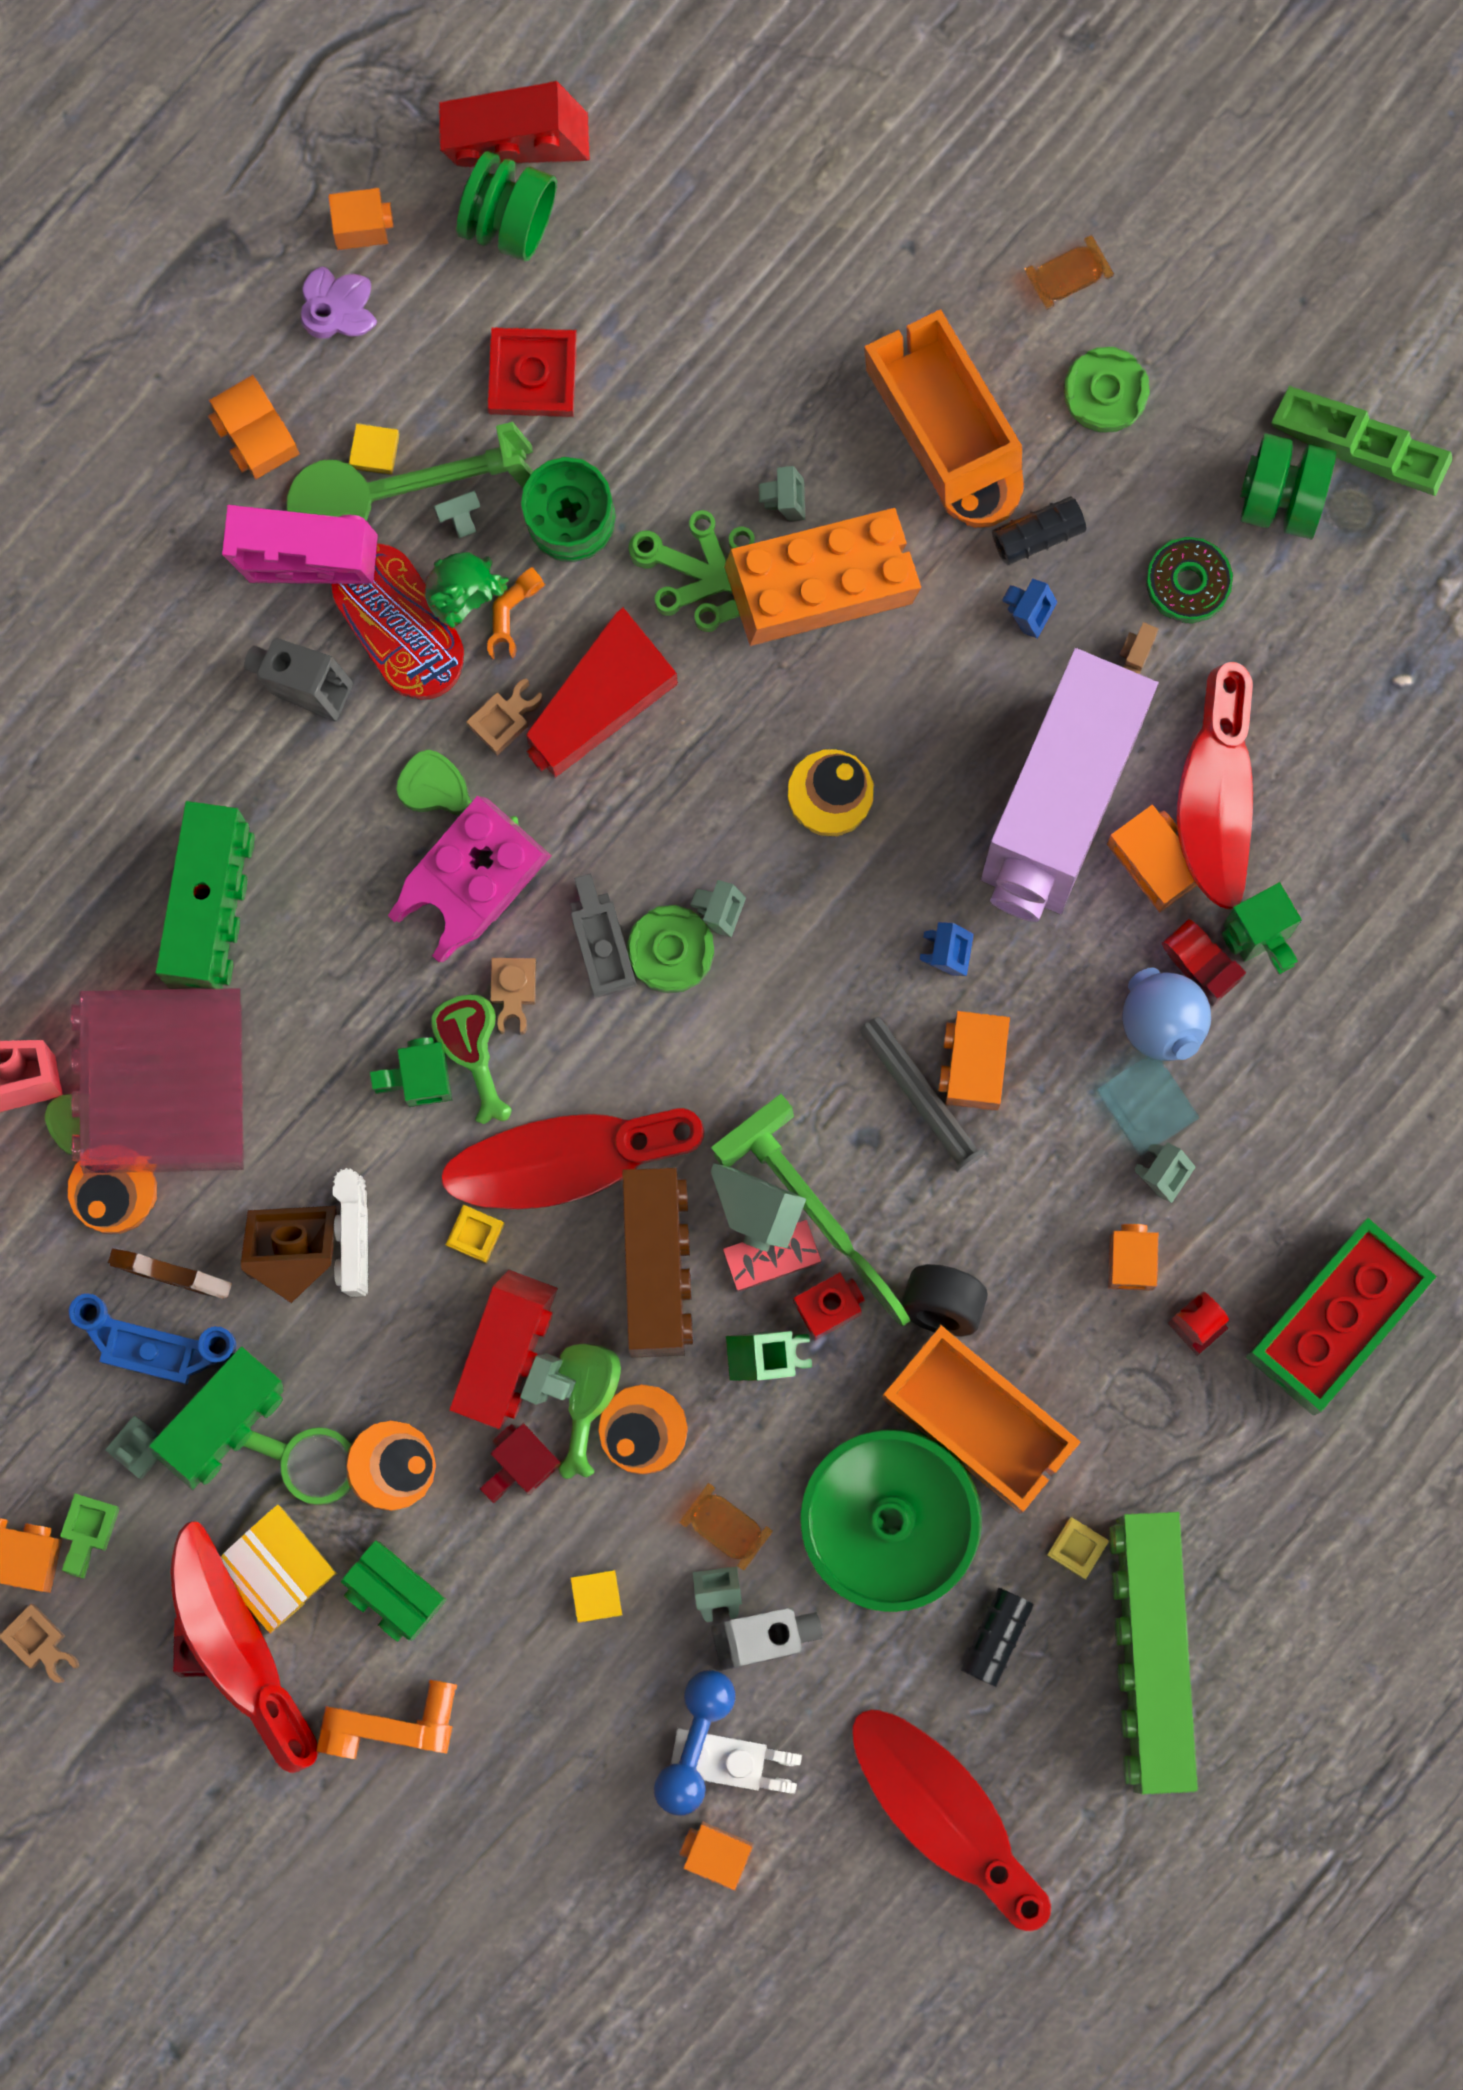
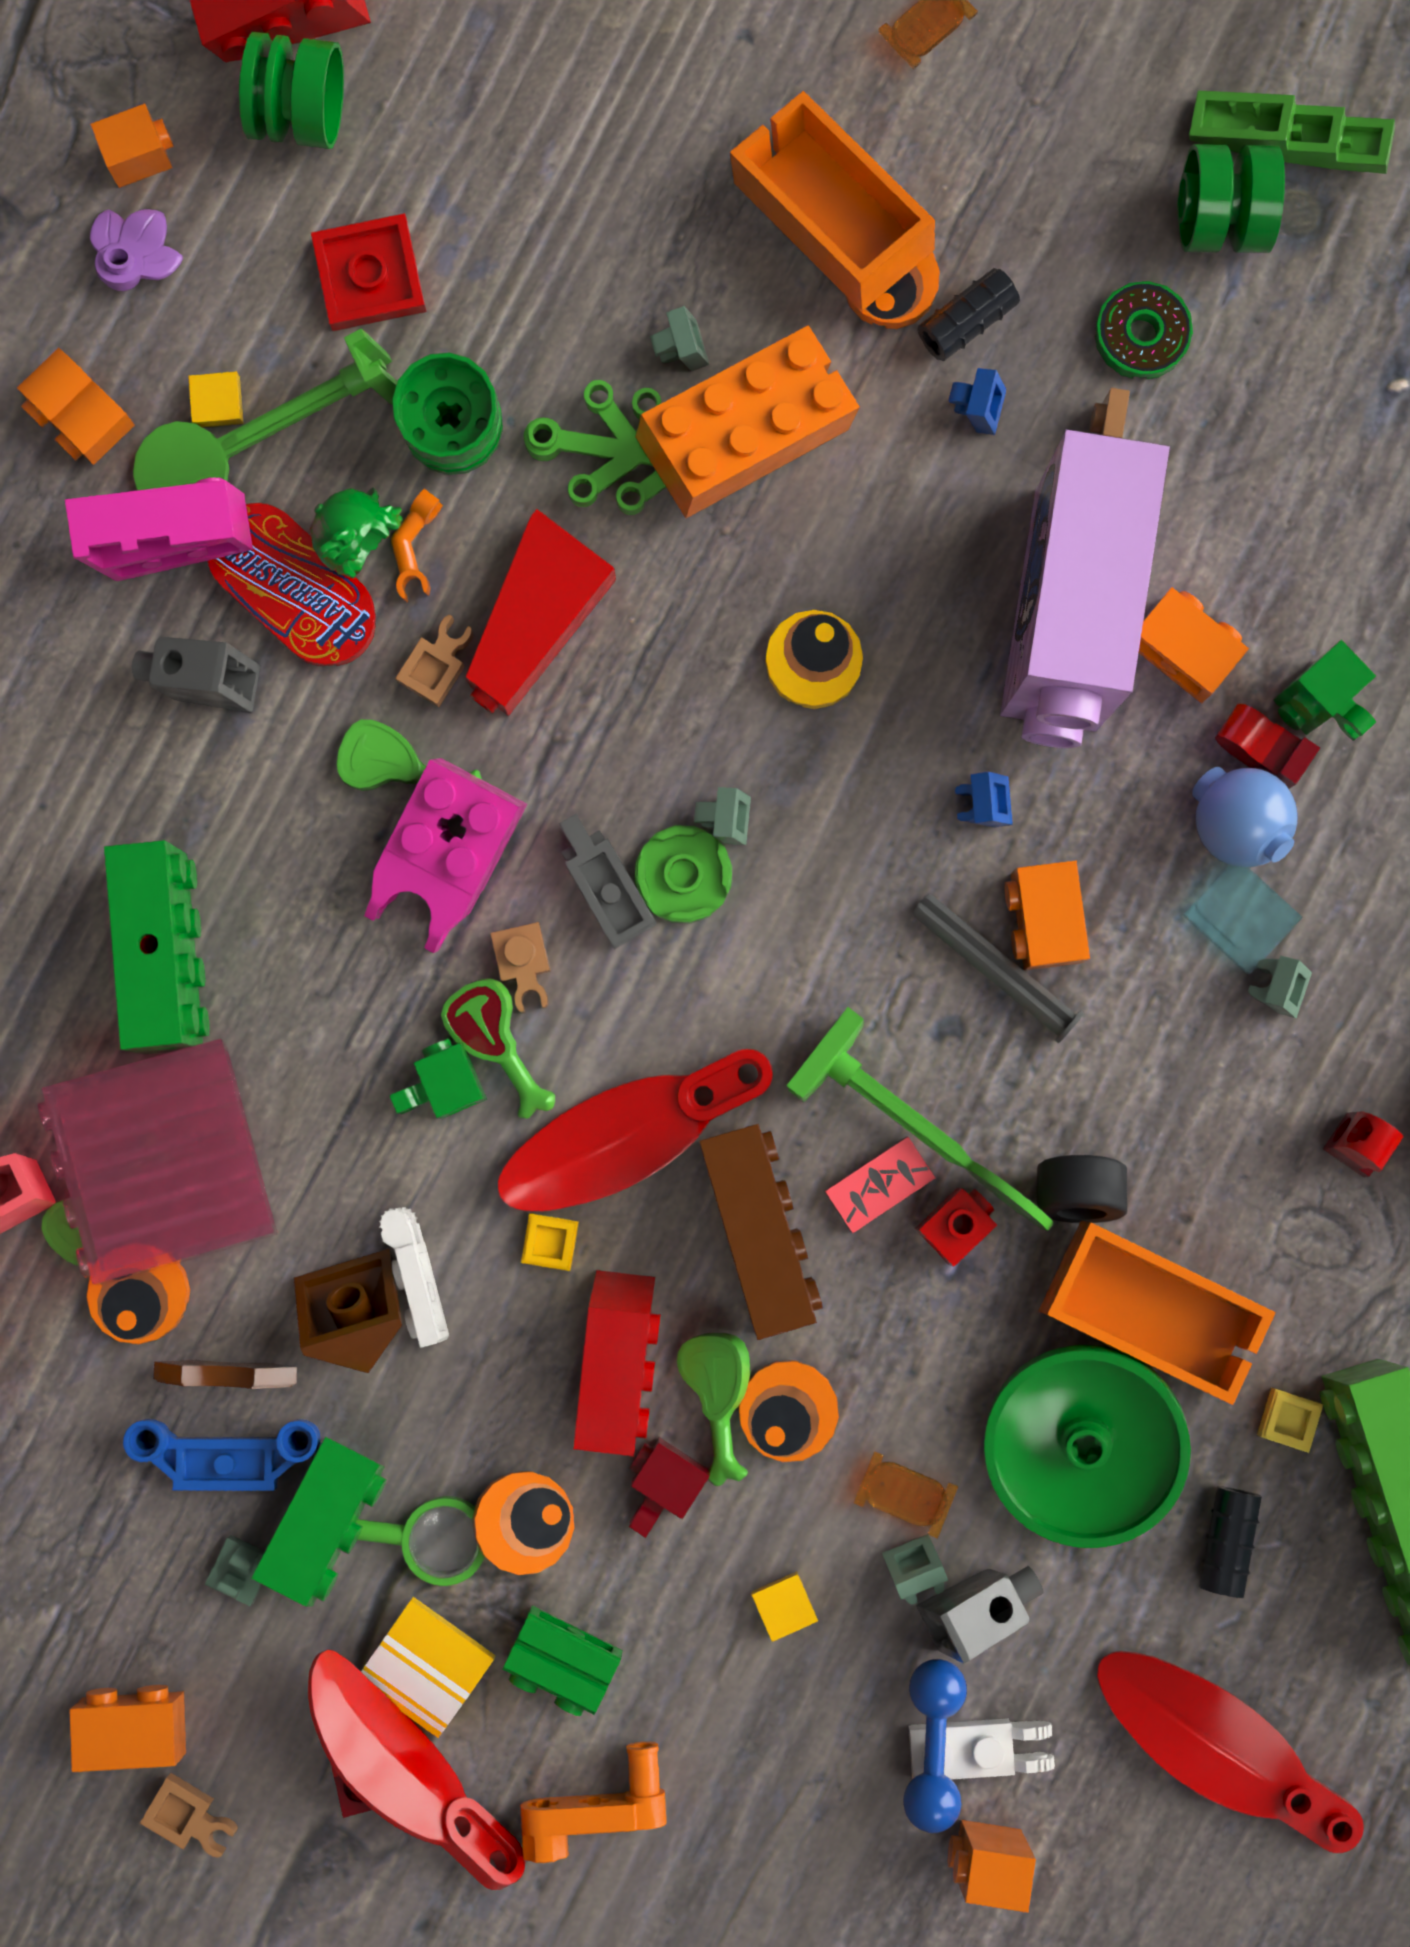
camera: 20 degrees left, 5 degrees up
(88, 1527) = (207, 1674): bright green plate -> none
(458, 511) = (326, 445): sand green tile -> none
(546, 1381) = (672, 1388): sand green tile -> none
(757, 1207) = (853, 1139): sand green slope -> none
(764, 1355) = (902, 1299): green brick -> none
(1106, 389) = (1000, 142): bright green tile -> none
(1133, 1258) = (1273, 1091): orange brick -> none
(1218, 790) = (1234, 552): plant -> none

